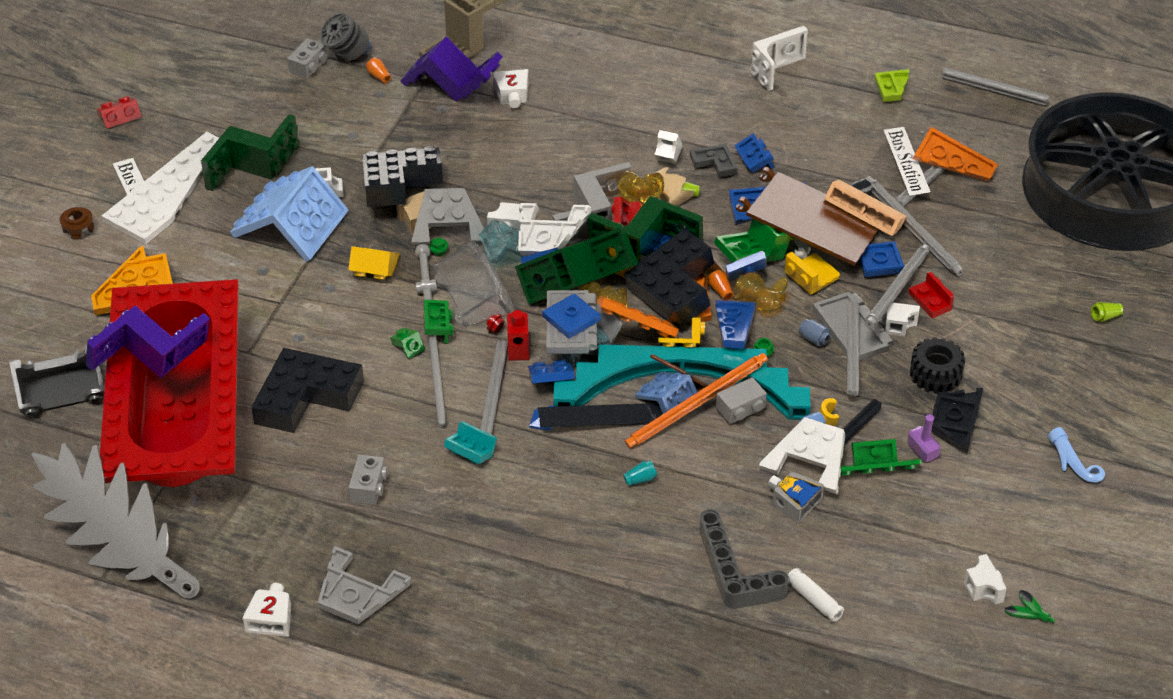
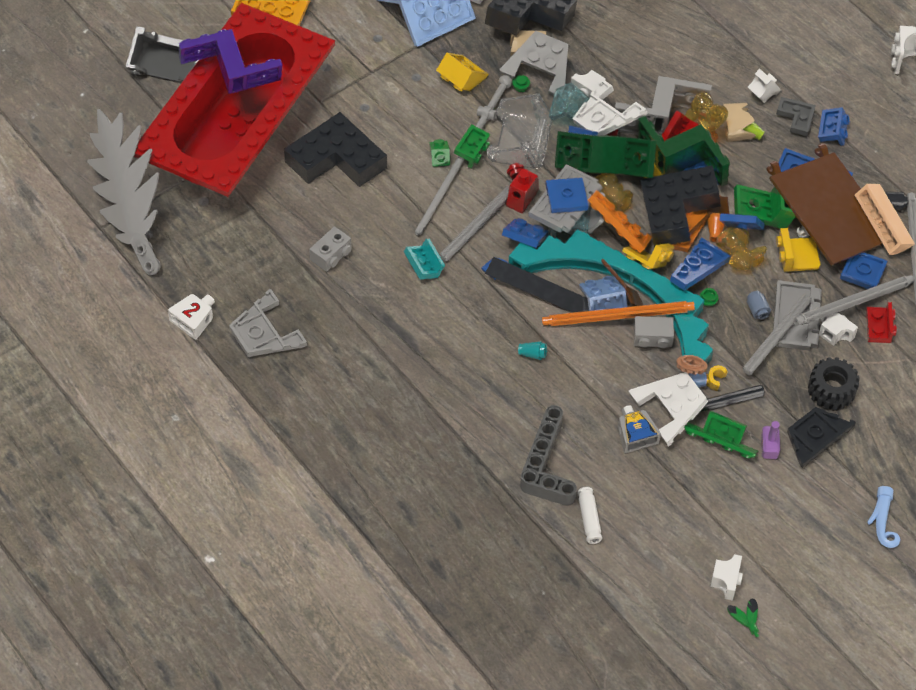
camera: 30 degrees right, 10 degrees up
(805, 408) = (691, 364): none -> nougat gear

